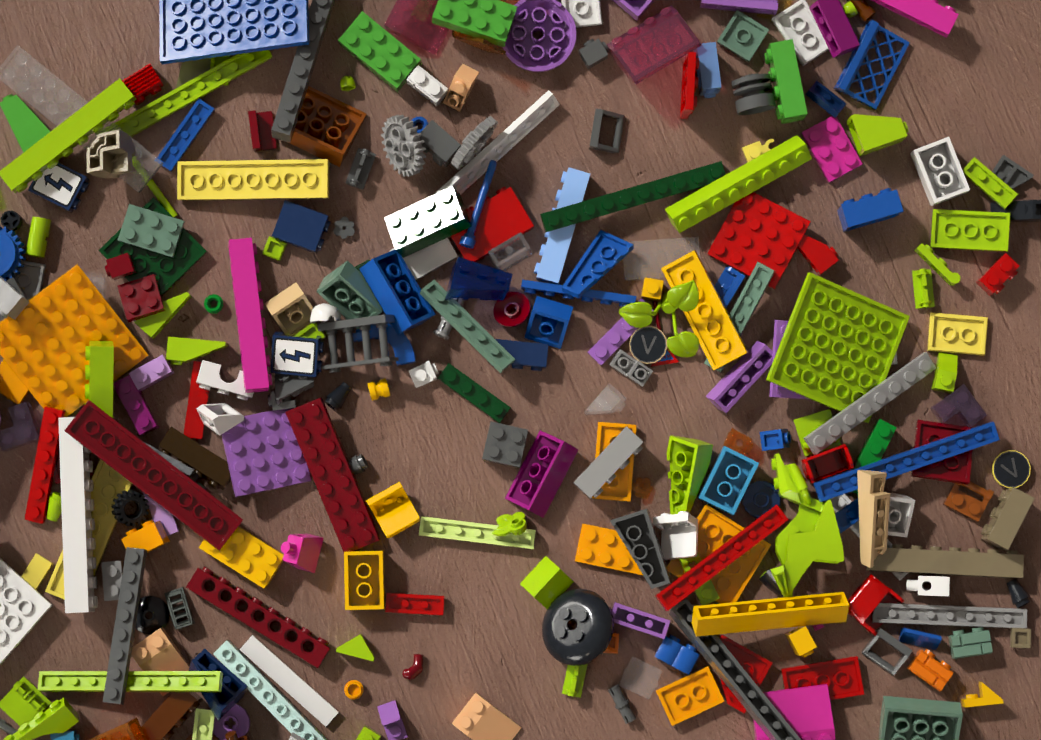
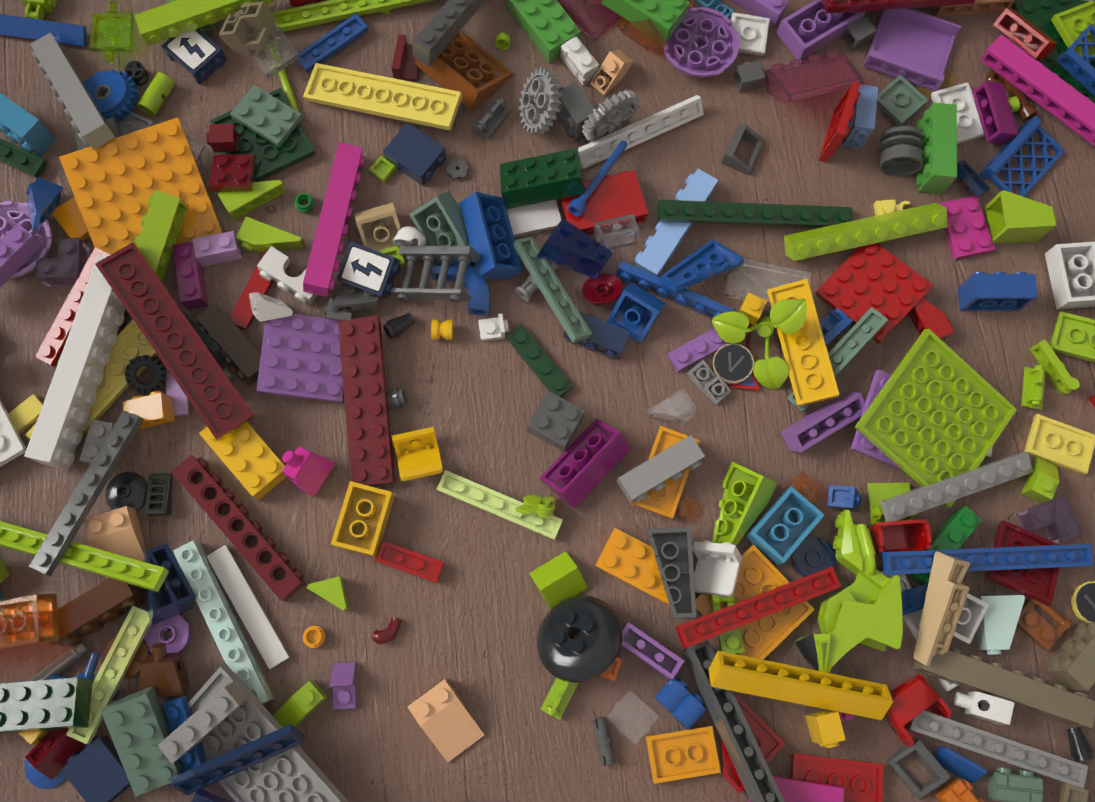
camera: 15 degrees right, 10 degrees down
(929, 509) = (999, 622): none -> light aqua slope

